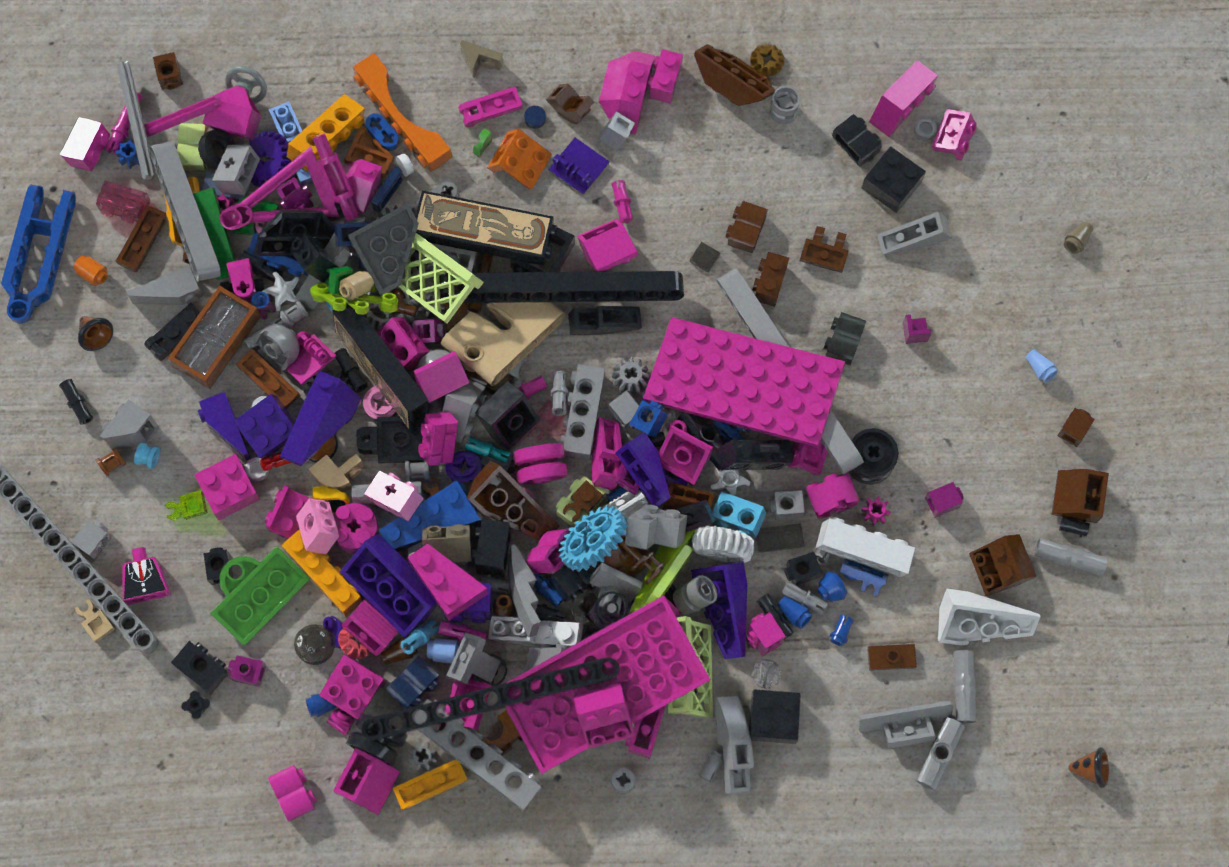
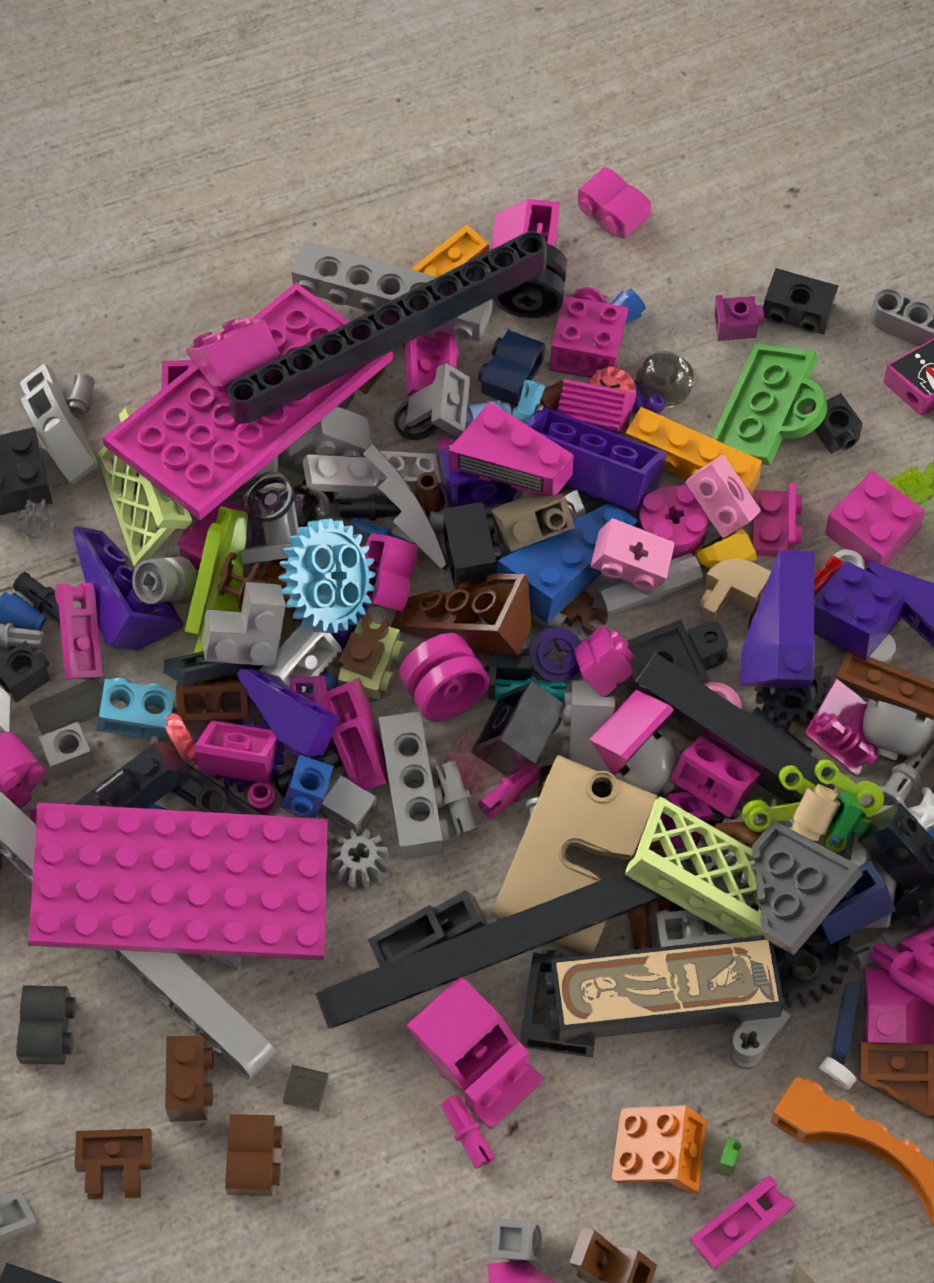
camera: 165 degrees right, 10 degrees down
(189, 705) = (780, 255): black plate -> none
(385, 129) = (904, 1114): blue beam -> none
(417, 470) = (626, 625): light grey bush -> none
(535, 117) = (663, 1233): dark blue tile -> none
(578, 165) = (559, 1172): dark purple hinge -> none
(594, 216) = (503, 1086): none -> dark pink bracket
(623, 785) = (187, 333): light grey wheel -> none
(715, 476) = (181, 738): none -> coral gear
(722, 544) = (140, 652): white gear -> none
(759, 579) = (79, 631): none -> dark pink plate
(764, 634) = (50, 556): dark pink brick -> none

